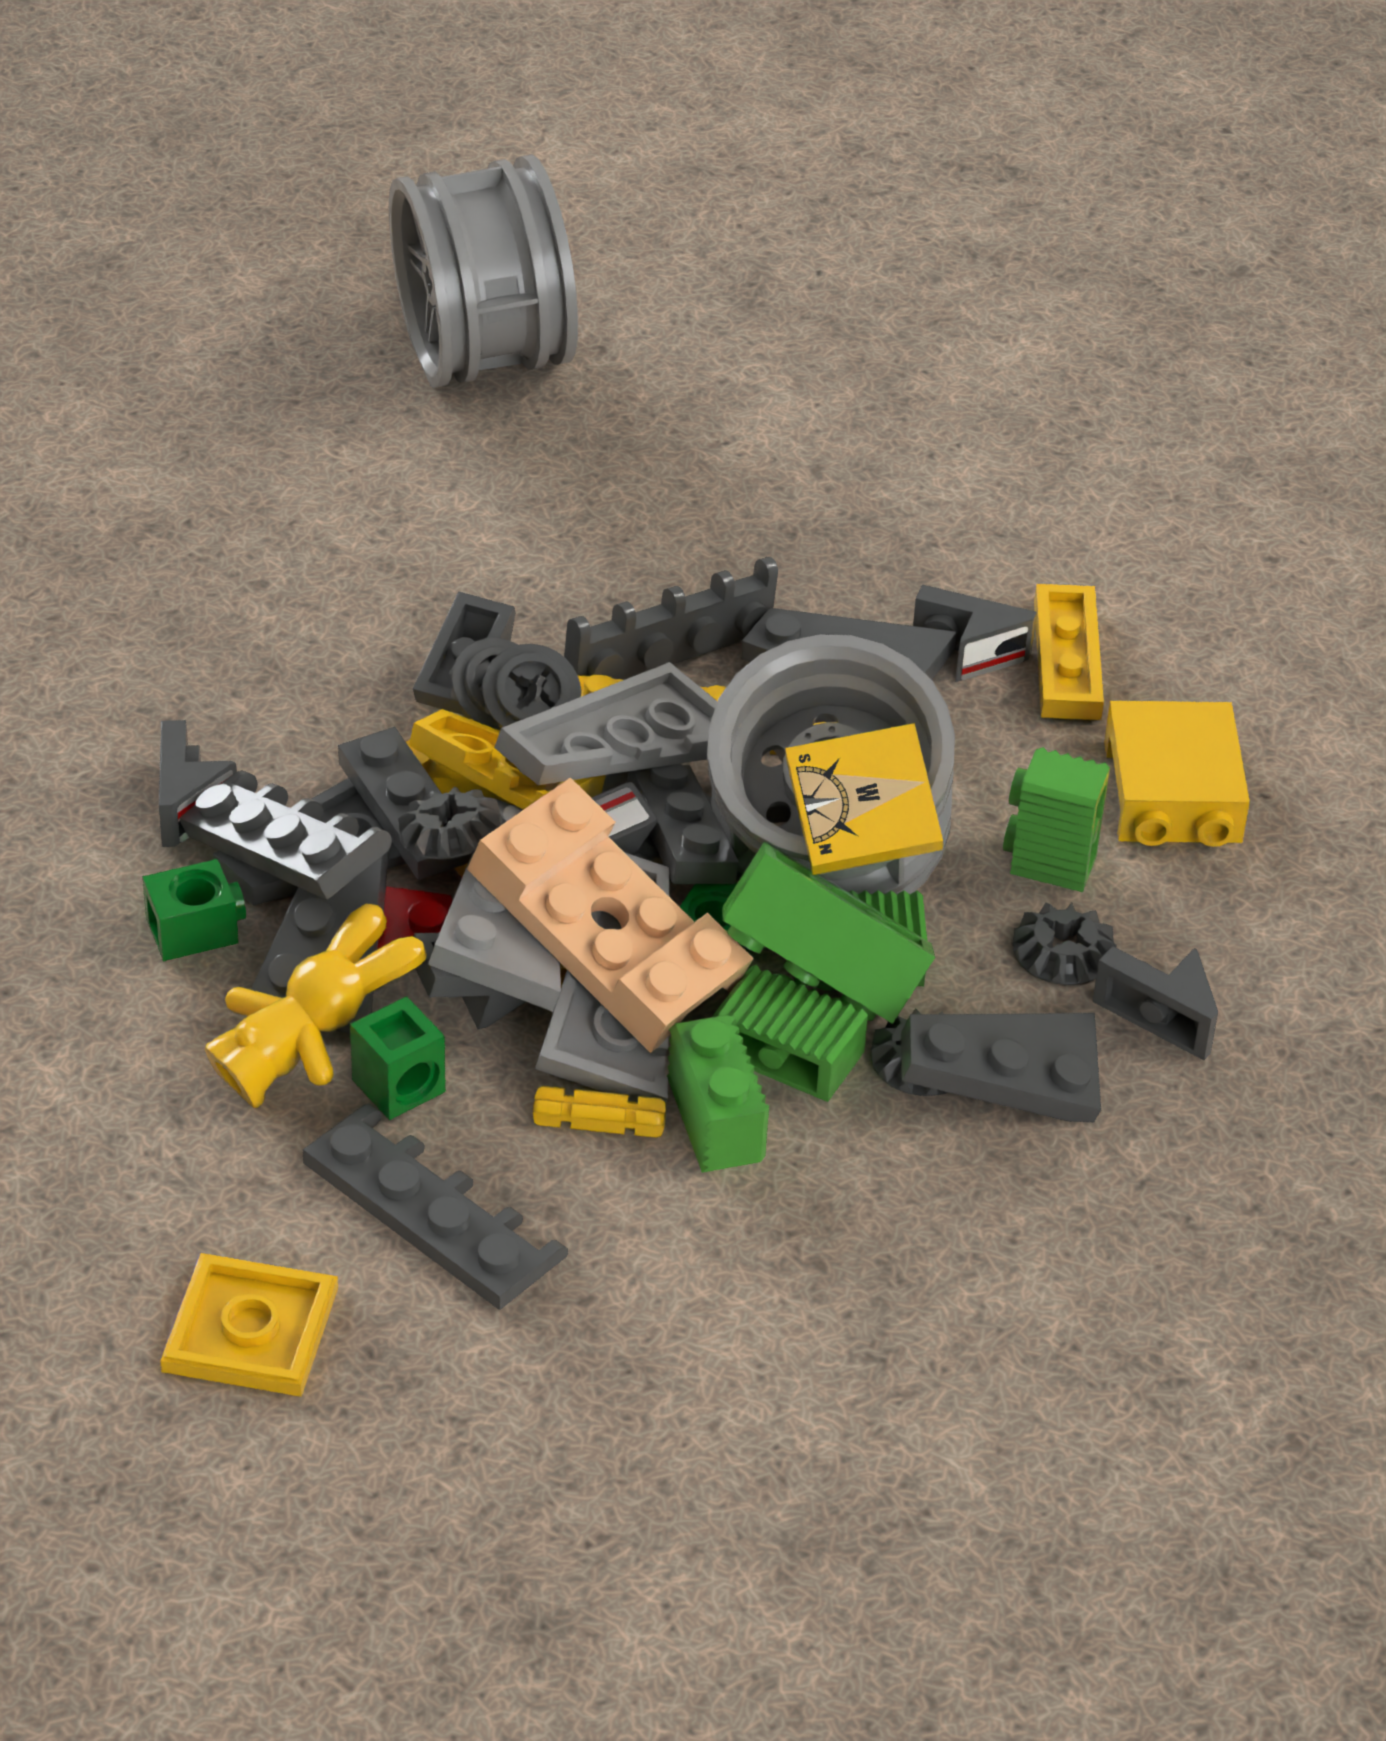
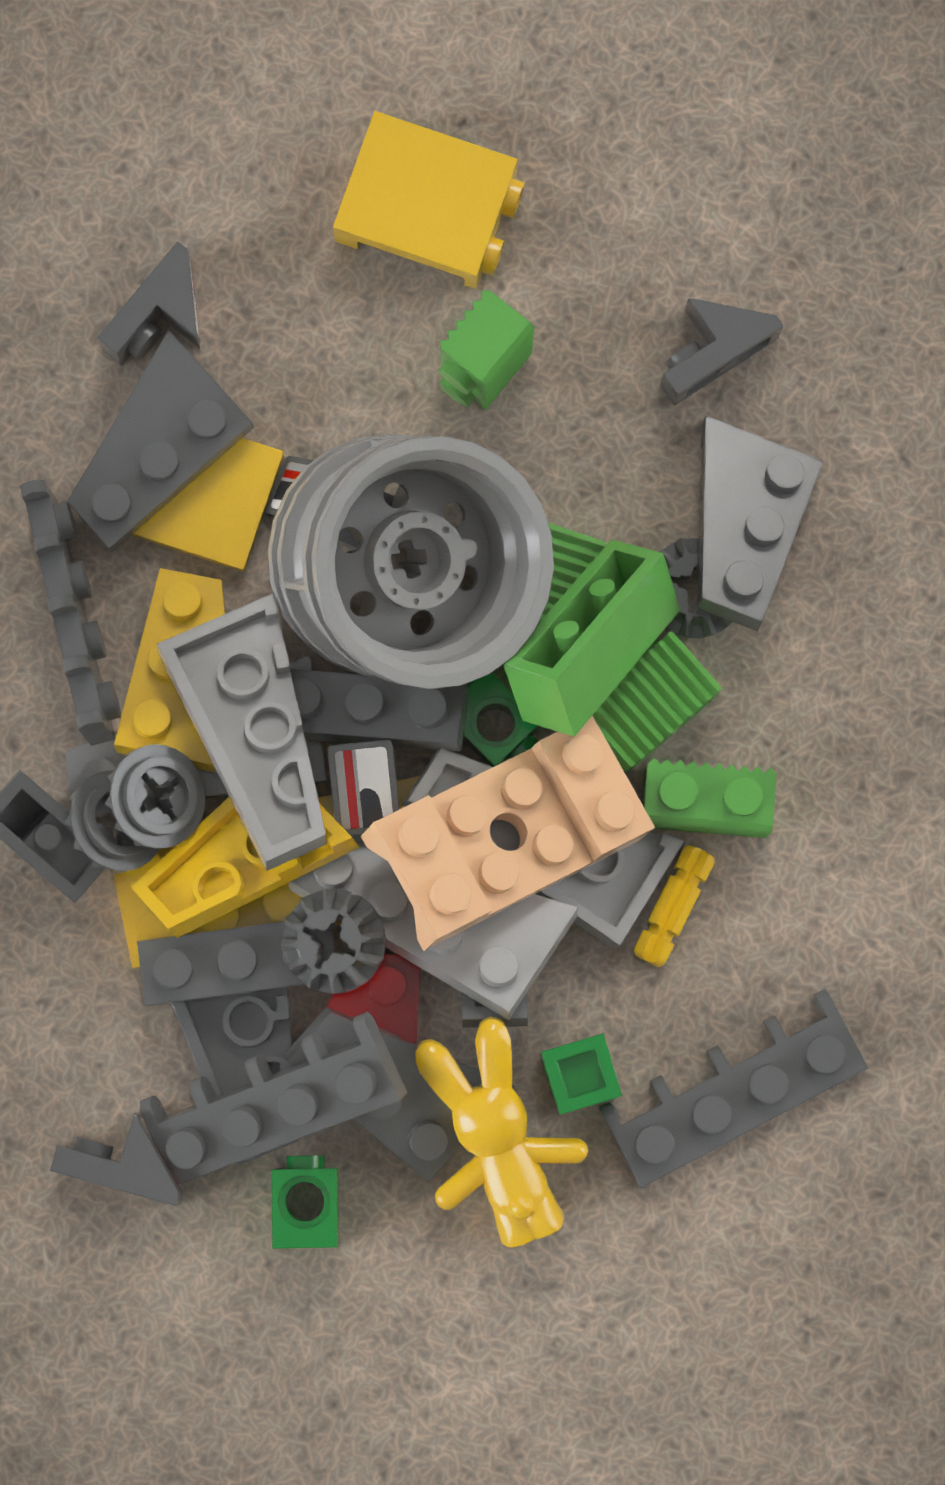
camera: 70 degrees left, 40 degrees up
(250, 1324) = (820, 1289): yellow tile -> none
(864, 799) = (513, 559): yellow tile -> none
(1065, 962) = (592, 429): dark grey gear -> none
(1068, 652) = (209, 223): yellow plate -> none

